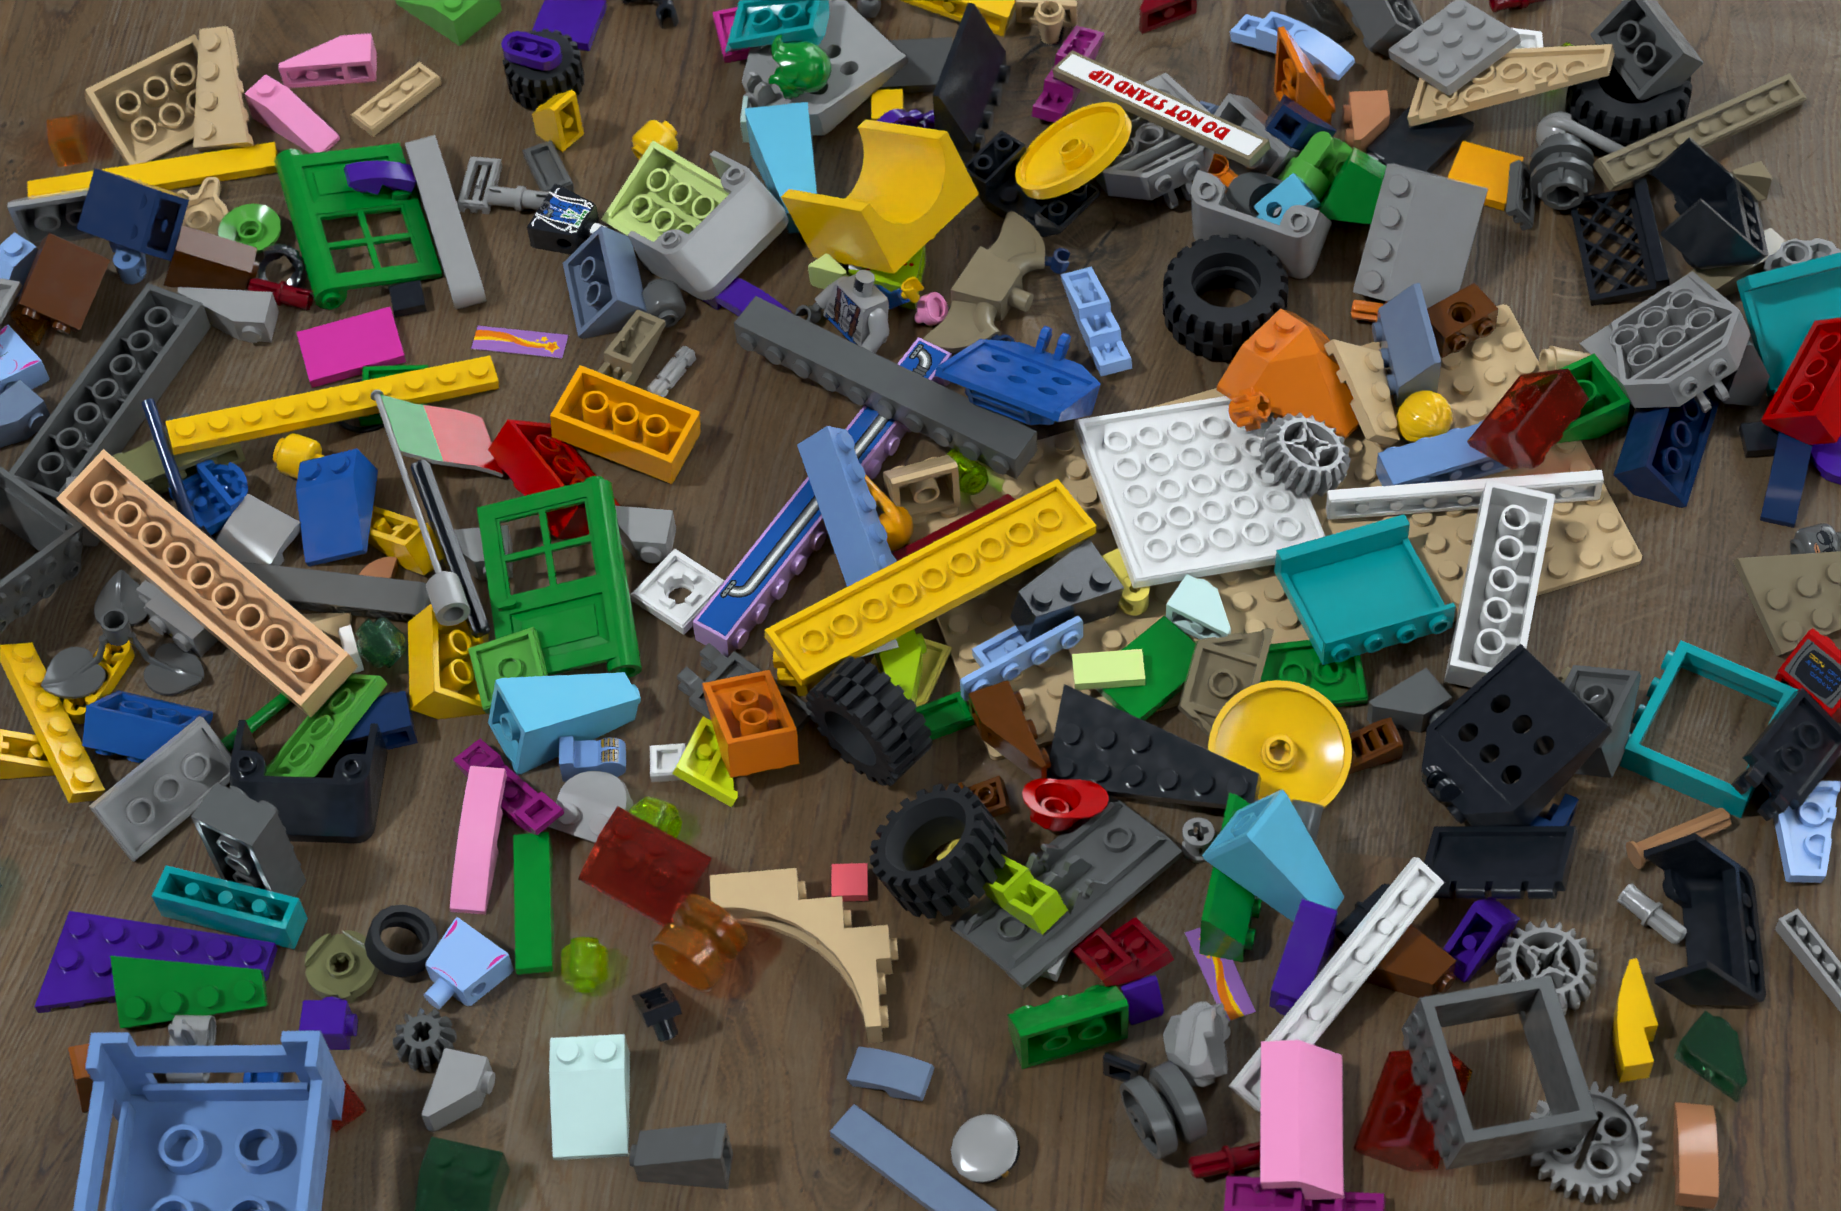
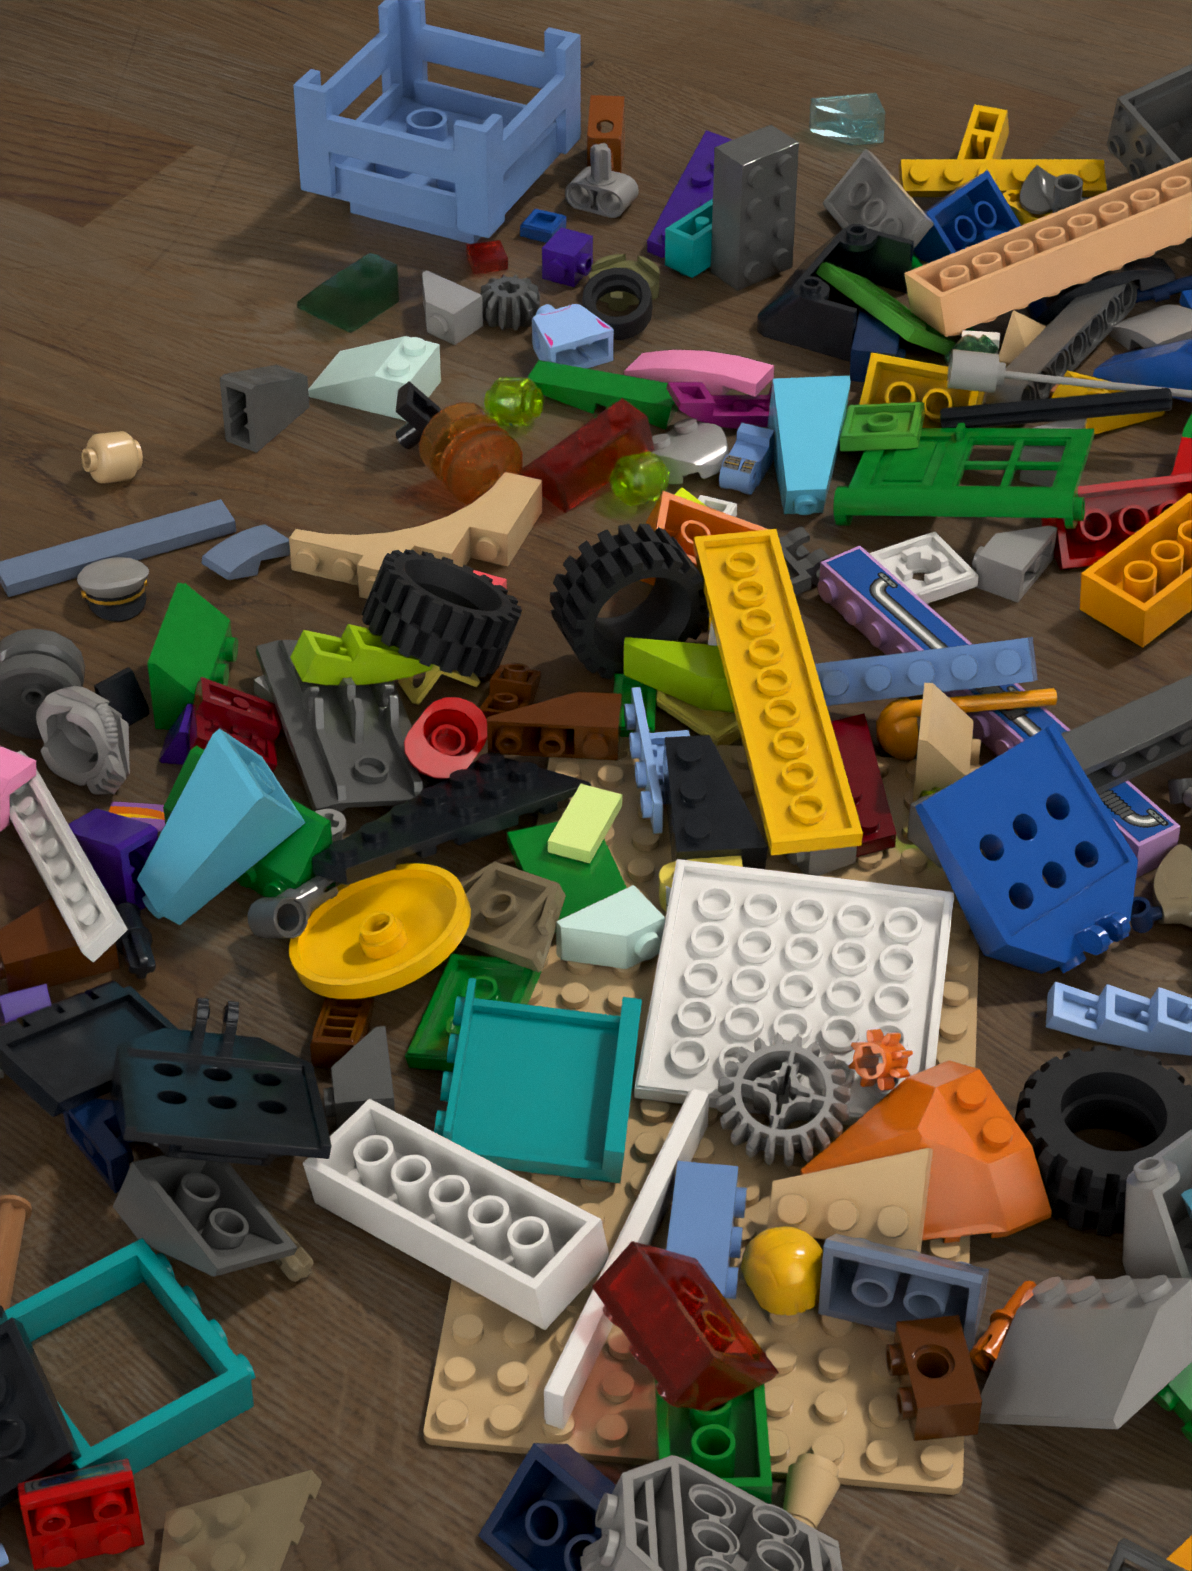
camera: 110 degrees right, 15 degrees down
(160, 989) = (659, 192): green wing -> none

